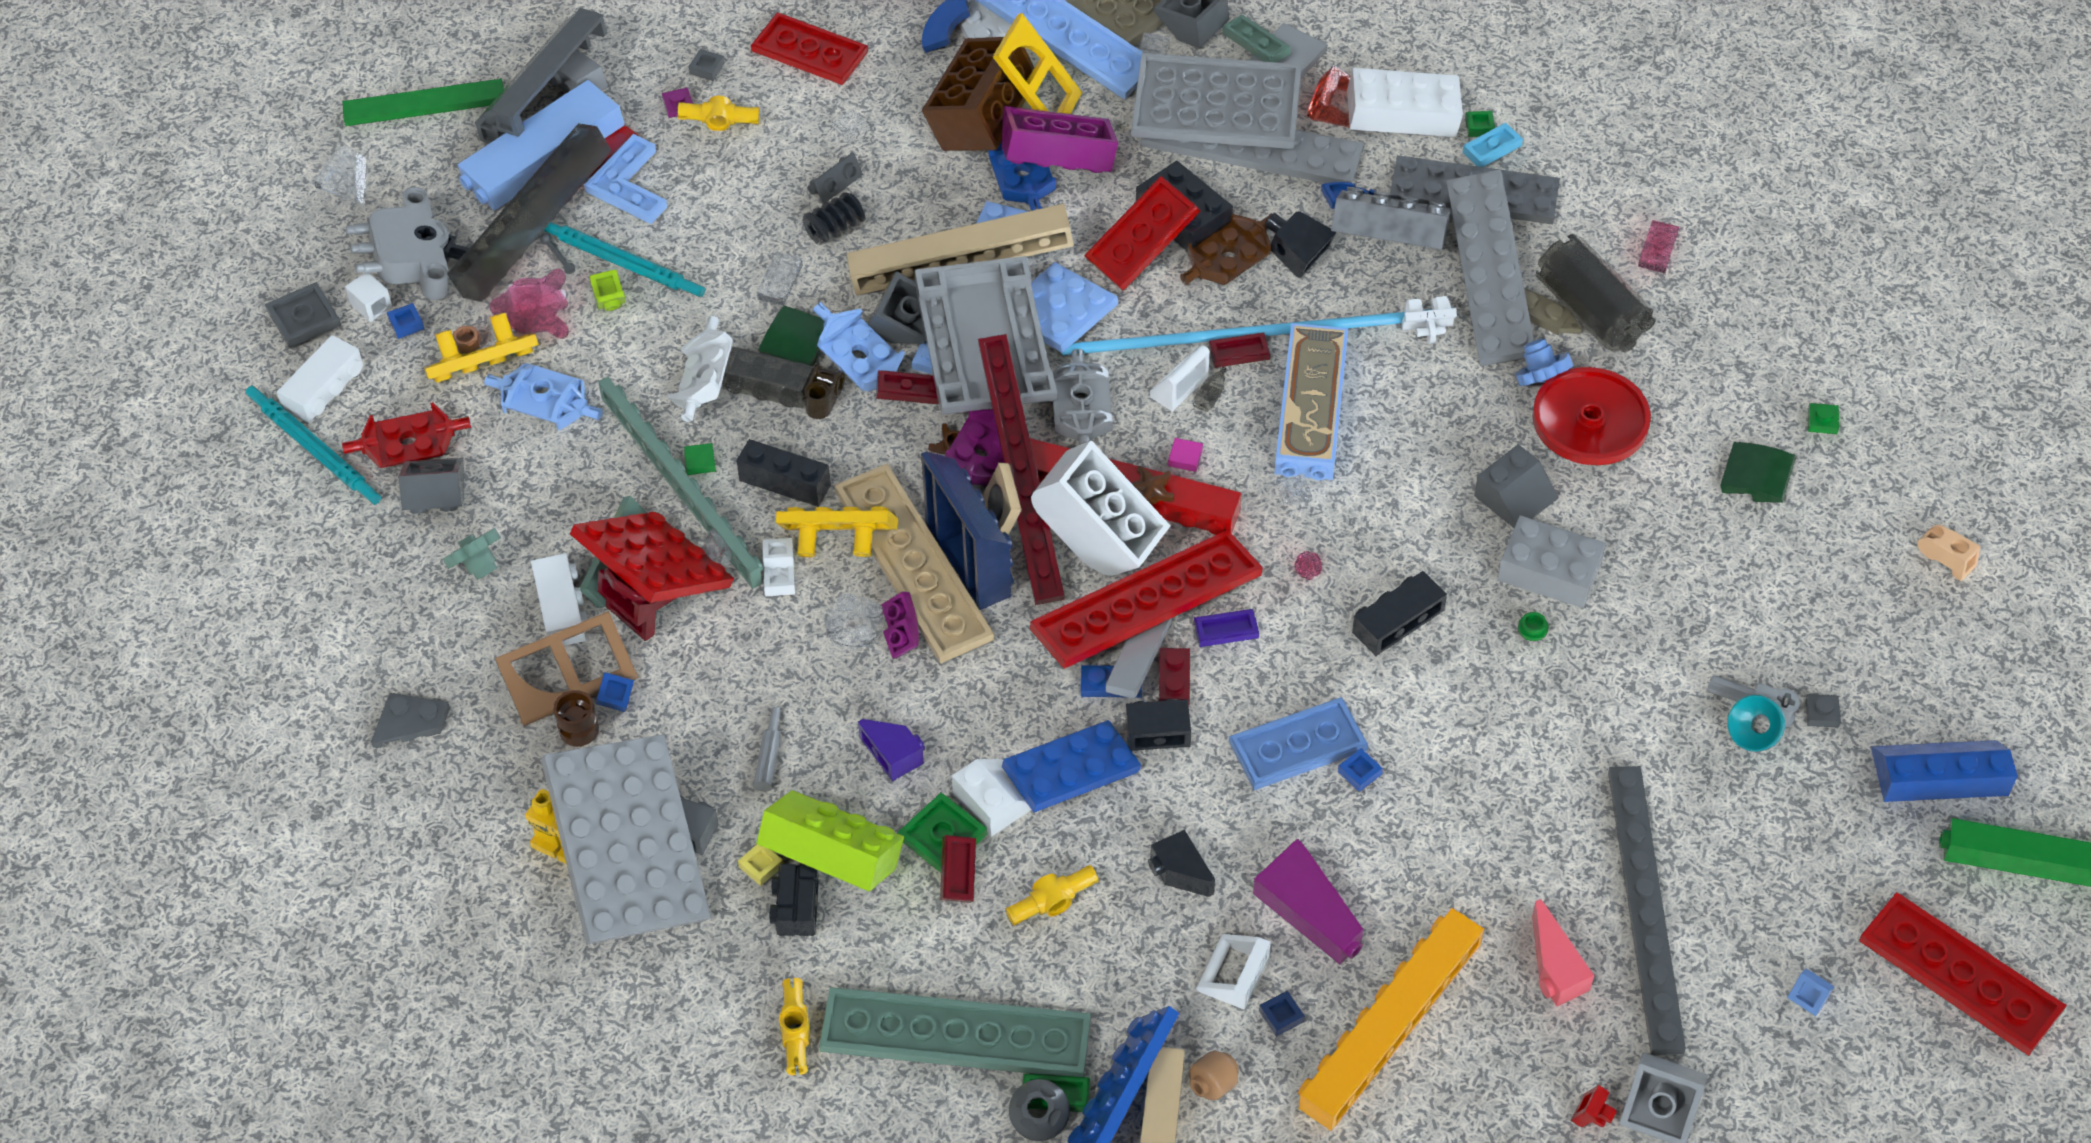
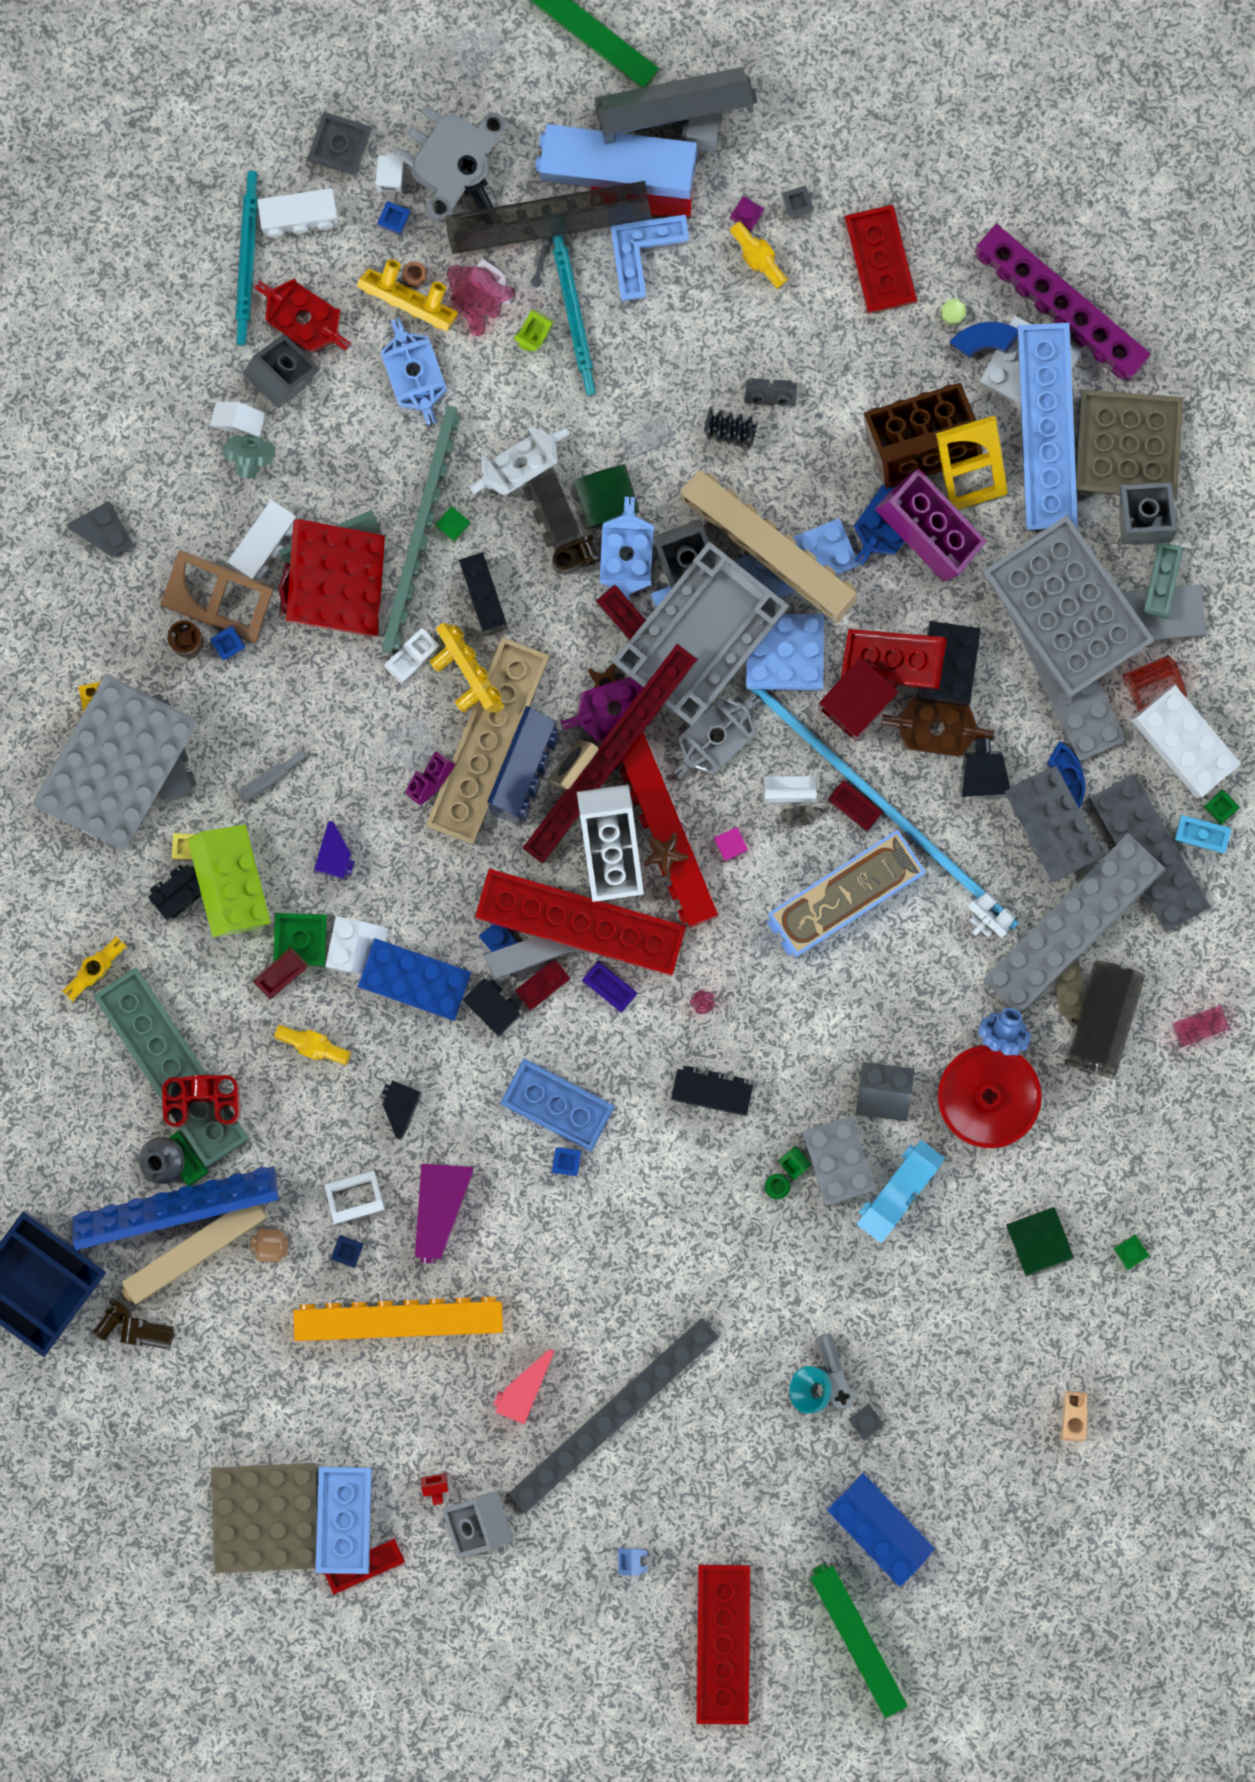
camera: 50 degrees right, 30 degrees up
(430, 545) = (237, 418): none -> white slope
(902, 32) = (953, 312): none -> yellowish green tile
(1006, 1009) = (200, 1089): none -> red beam
(1153, 275) = (858, 698): none -> dark red slope
(1523, 596) = (794, 1162): none -> green tile
(1614, 524) = (896, 1196): none -> medium azure brick

